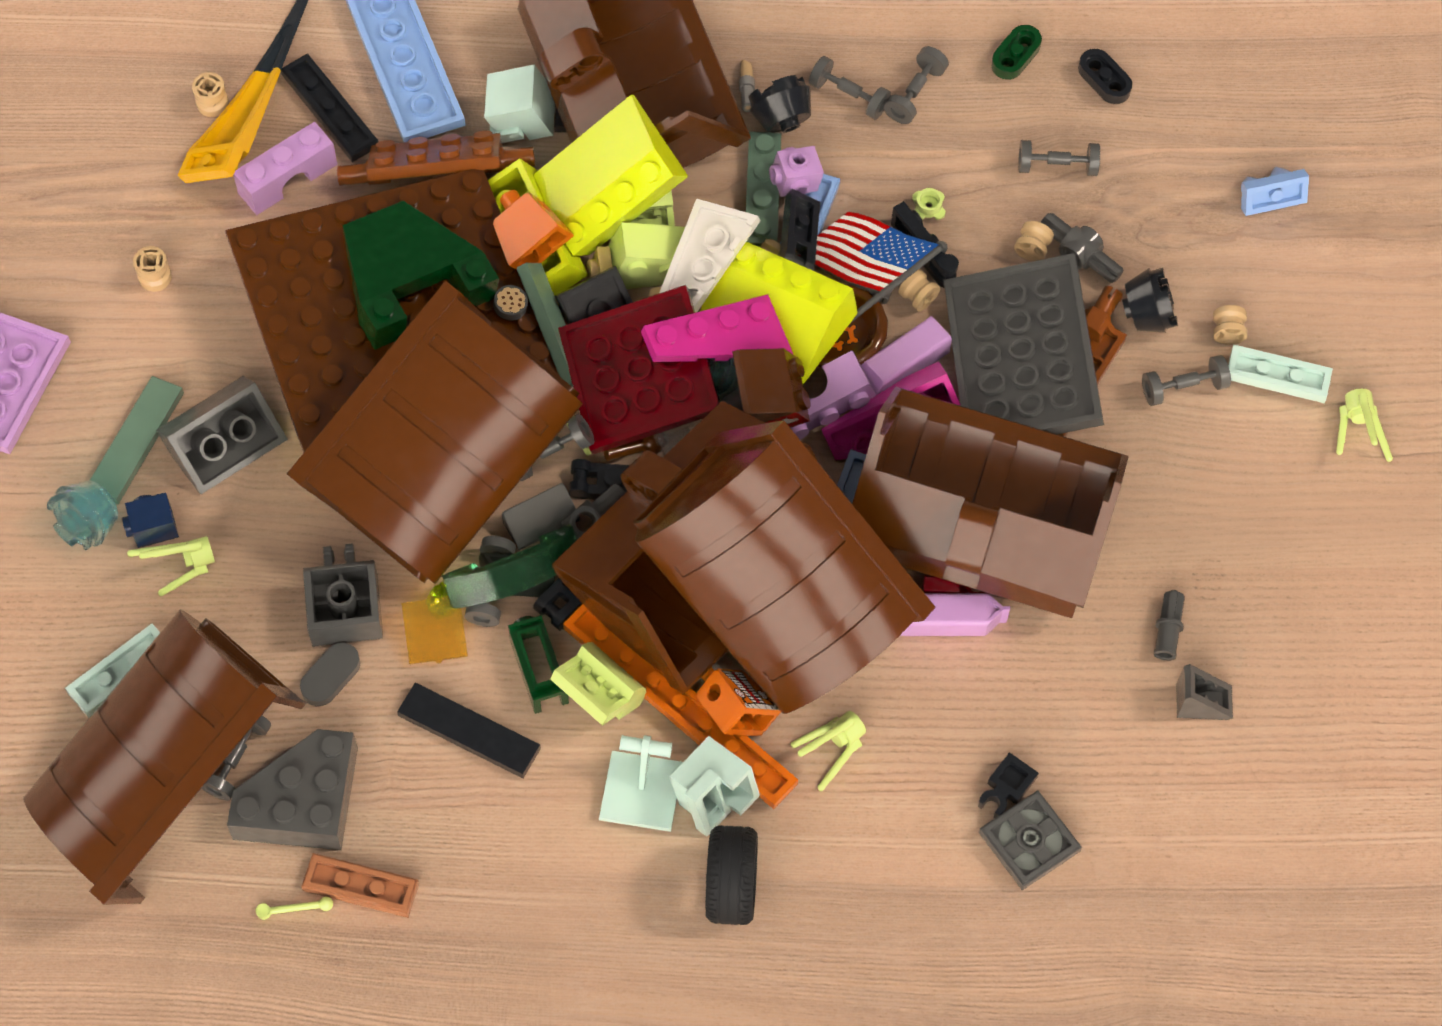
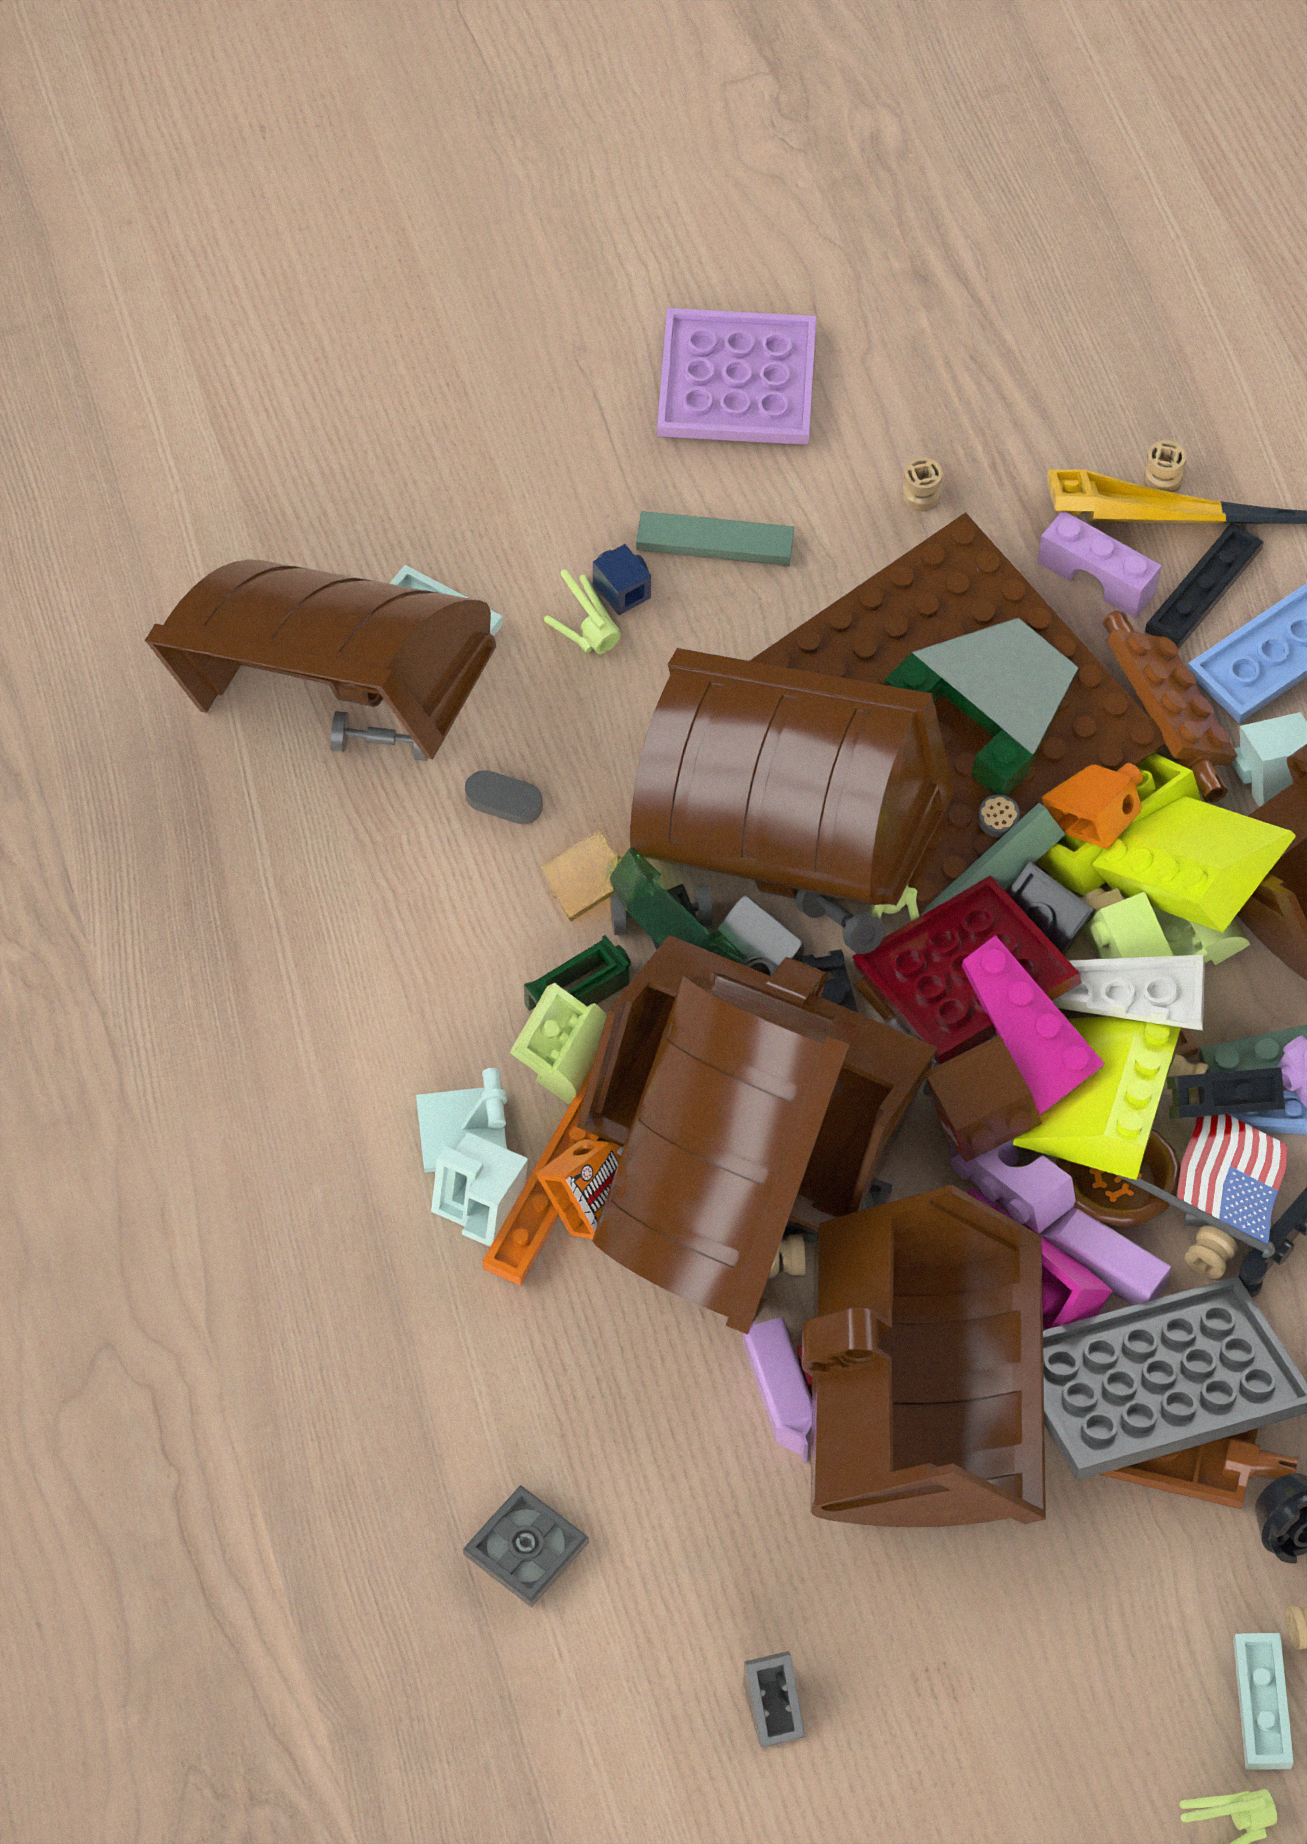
camera: 75 degrees right, 5 degrees down
(83, 513) = (603, 514): clear light blue cone -> none
(222, 434) = (741, 604): dark grey slope -> none
(264, 911) = (222, 821): yellowish green hinge -> none
(299, 795) = (354, 807): dark grey brick -> none
(330, 585) = (585, 774): dark grey hinge -> none
(360, 885) = (274, 896): nougat tile -> none
(469, 730) = (481, 945): black tile -> none
(731, 875) = (374, 1229): black tyre -> none
(842, 731) = (598, 1312): yellowish green plant -> none
(1009, 782) = (591, 1507): black plate -> none
(1169, 625) = (858, 1643): dark grey axle -> none
(1218, 372) = (1179, 1553): dark grey wheel -> none

